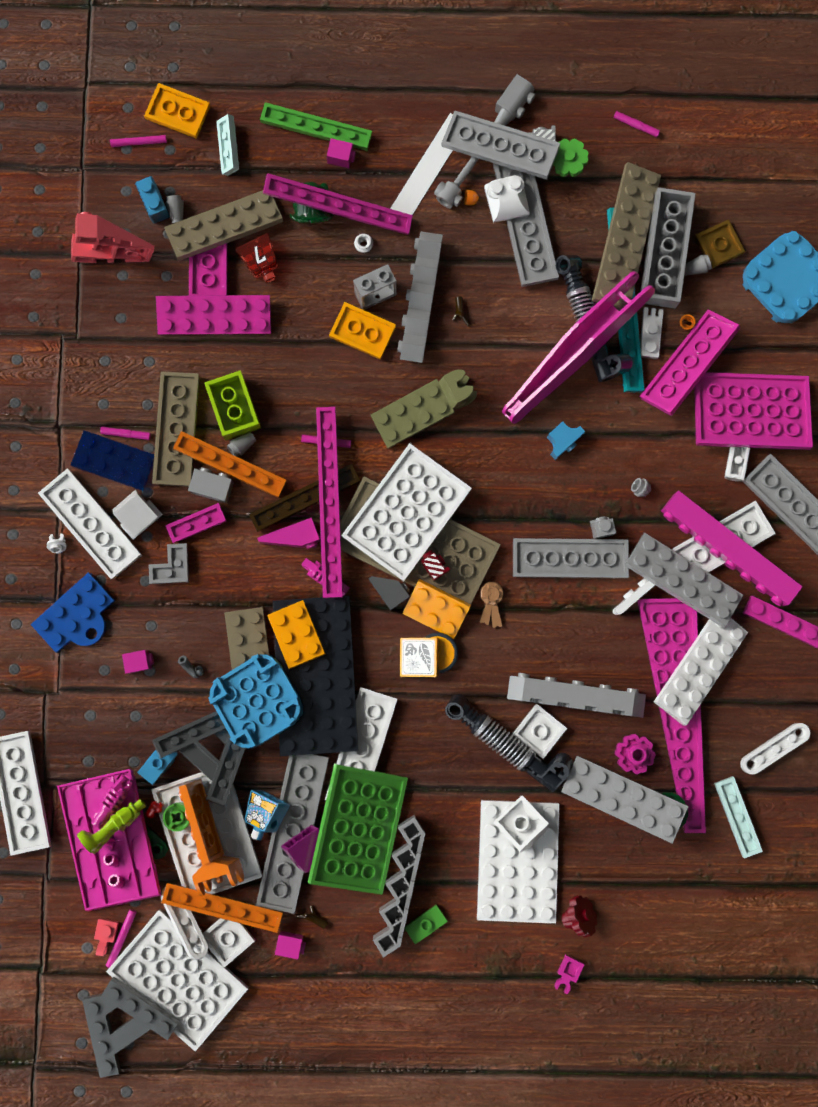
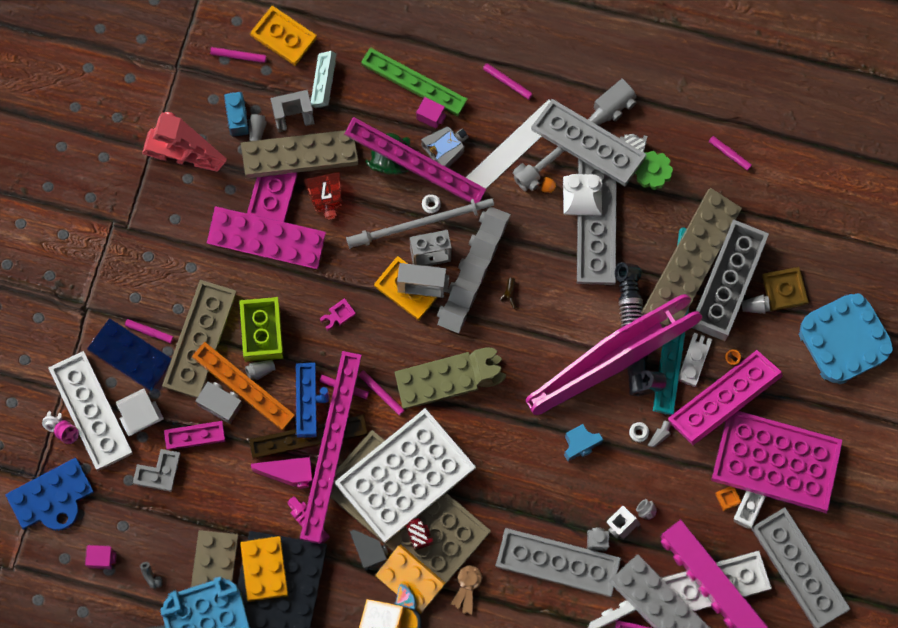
camera: 15 degrees right, 10 degrees down
(77, 549) = (71, 432): none -> dark pink wheel
(204, 177) = (292, 104): none -> light grey panel
(295, 462) = (306, 399): none -> blue plate
(303, 371) = (339, 313): none -> dark pink plate
(310, 291) = (367, 237): none -> light grey bar
(362, 182) = (445, 145): none -> torso
(363, 438) = (381, 393): none -> dark pink bar
(376, 319) = (422, 280): none -> light grey window
(406, 104) = (506, 80): none -> dark pink bar
(437, 628) = (405, 597): none -> tile
(615, 409) = (639, 426): none -> white plate
(622, 499) = (621, 517): none -> light grey brick
(636, 413) = (660, 434): none -> light grey bar
(714, 457) = (728, 498): none -> orange tile

